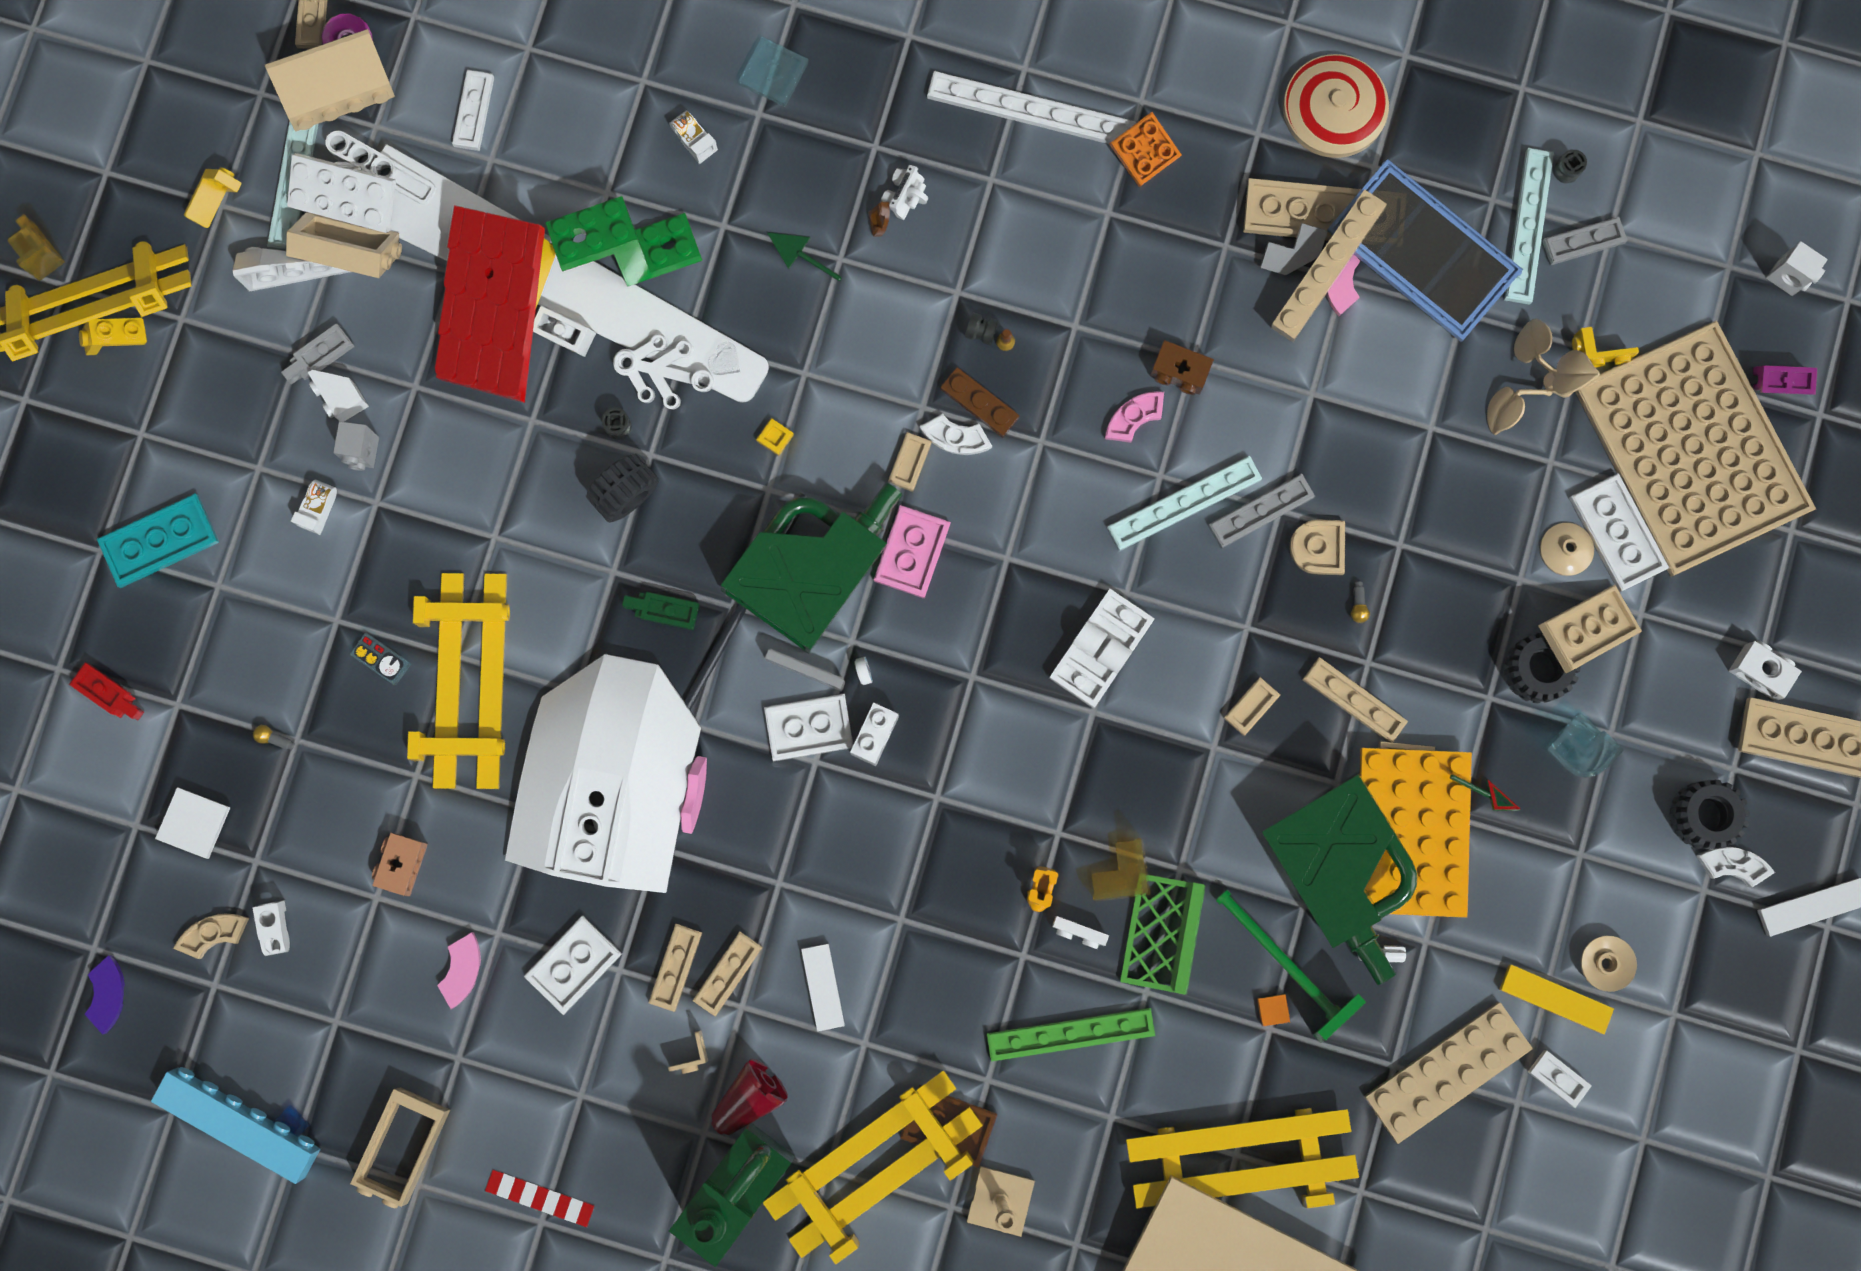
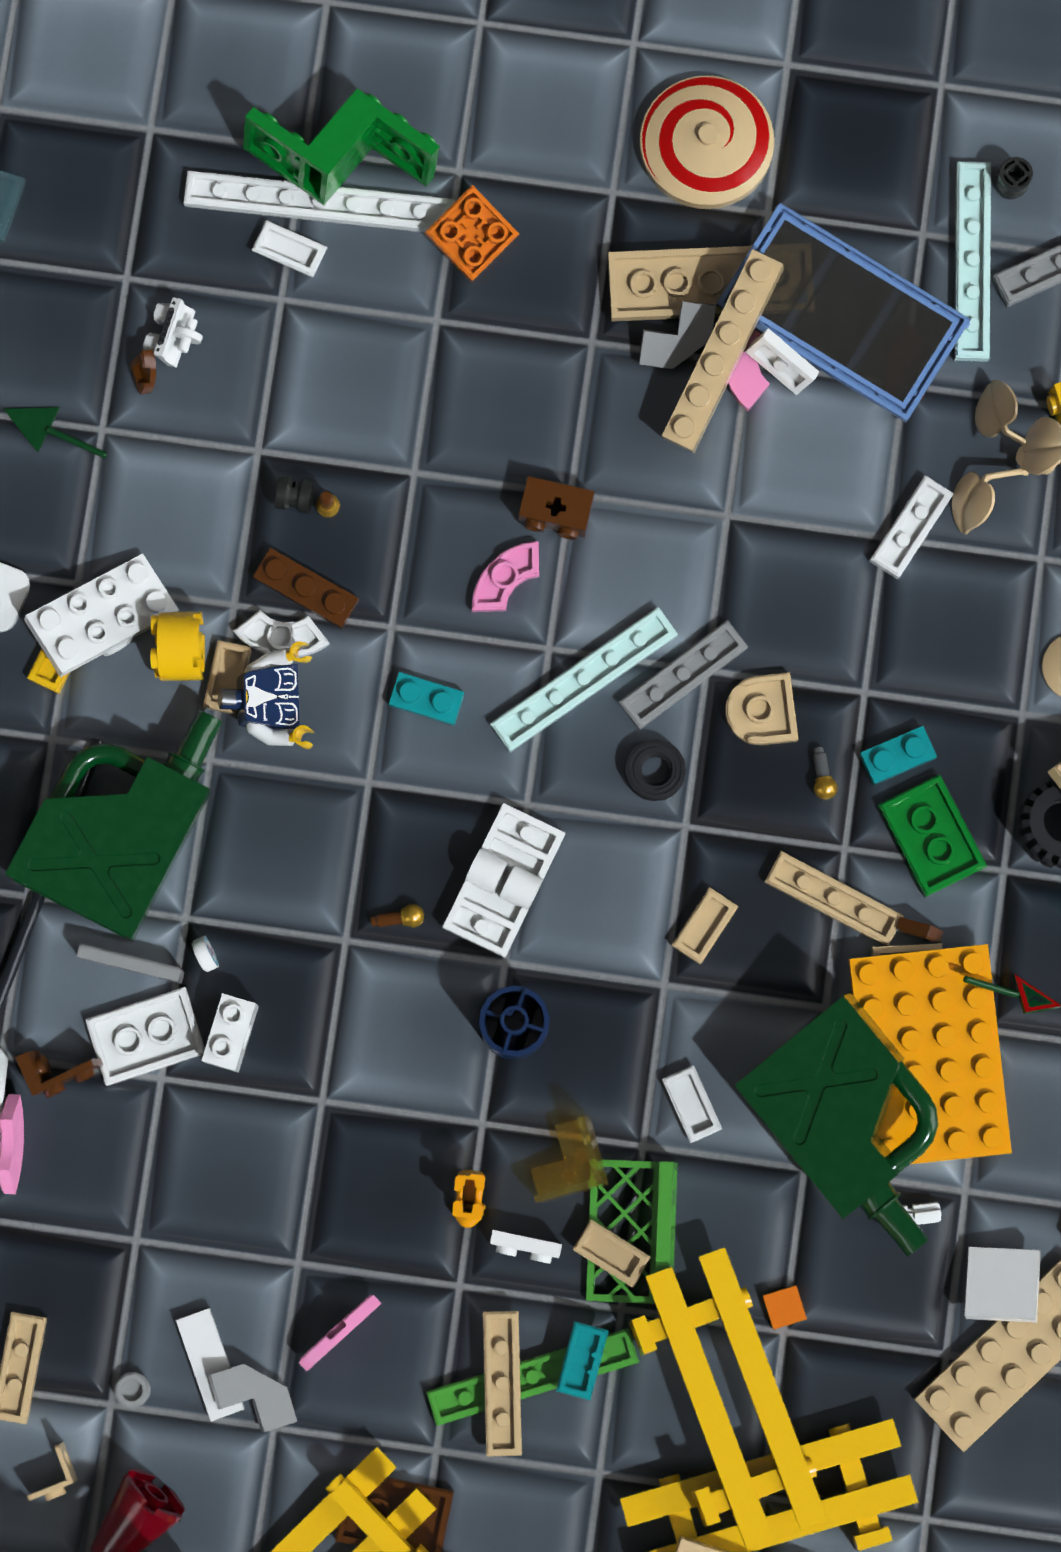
camera: 10 degrees left, 0 degrees up
(722, 740) = (37, 1072): none -> reddish brown bracket
(727, 974) = (86, 1365): tan tile -> none
(760, 998) = (132, 1389): none -> light grey tile
(820, 399) = (100, 615): none -> white plate
(864, 1019) = (268, 1396): none -> light grey tile
(877, 431) = (179, 646): none -> yellow brick
(912, 551) = (246, 792): bright pink tile -> none
(926, 977) = (339, 1332): none -> bright pink tile
(941, 482) = (270, 698): none -> torso
(1003, 141) = (289, 248): none -> white tile
(1025, 665) = (410, 915): none -> piece
(1047, 1036) = (502, 1383): none -> tan tile
(1061, 500) = (426, 699): none -> teal plate
(1068, 56) = (341, 146): none -> green bracket
(1096, 758) = (514, 1022): none -> dark blue cylinder
(1111, 1028) = (582, 1360): none -> teal plate
(1146, 948) = (612, 1253): none -> tan tile
(1222, 1147) = (739, 1490): none -> yellow fence
(1223, 842) = (692, 1104): none -> white tile
(1246, 580) = (651, 749): none -> black tyre
(1335, 1015) = (860, 1301): green tile -> none
(1372, 281) = (782, 361): none -> white plate
(1419, 597) = (898, 755): none -> teal plate
(1423, 735) = (920, 929): none -> reddish brown tile
(1437, 663) = (932, 835): none -> green tile
(1447, 1018) = (1002, 1284): none -> white tile
(1454, 423) = (911, 527): none -> white tile

